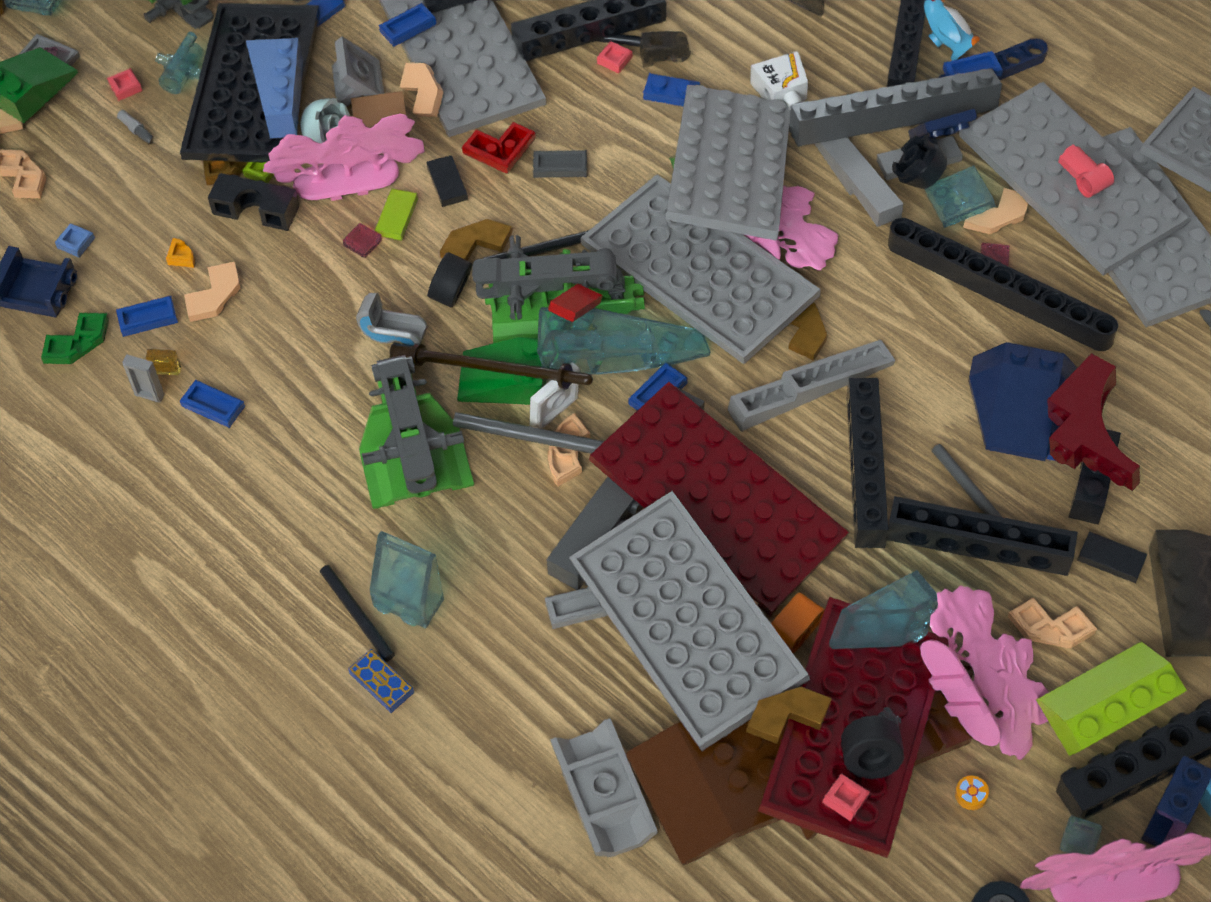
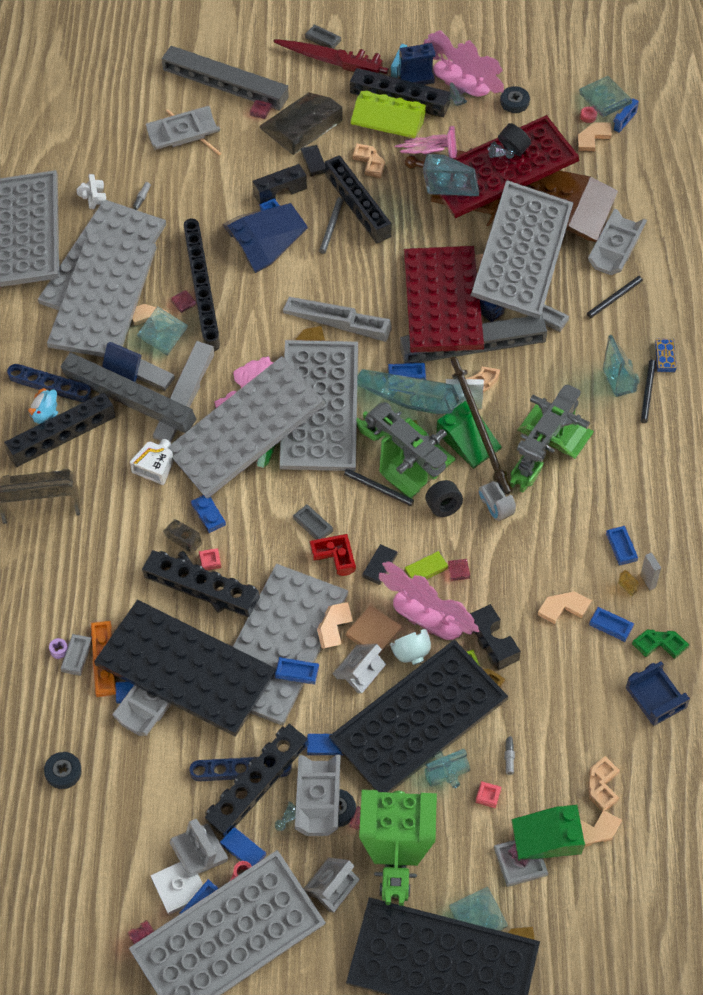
camera: 135 degrees left, 0 degrees up
(74, 240) = (610, 707): medium blue tile -> none
(180, 254) = (560, 646): light orange tile -> none
(278, 77) = (415, 681): medium blue wedge -> none
(482, 233) = (409, 523): pearl gold tile -> none
(525, 433) = (489, 389): dark grey piece -> none
(526, 710) = (614, 297): none -> black bar
(575, 302) = (415, 401): red tile -> none
(796, 704) = (536, 180): pearl gold tile -> none
(798, 621) = (469, 234): orange beam -> none
(846, 797) = (542, 137): coral tile -> none
(867, 463) = (361, 264): black brick -> none
(921, 162) = (161, 353): black cone -> none
(971, 792) = (476, 137): light orange tile -> none
(973, 63) = (62, 383): blue tile -> none
(1082, 433) = (260, 191): dark red arch -> none
(1088, 175) = (104, 275): coral piece -> none

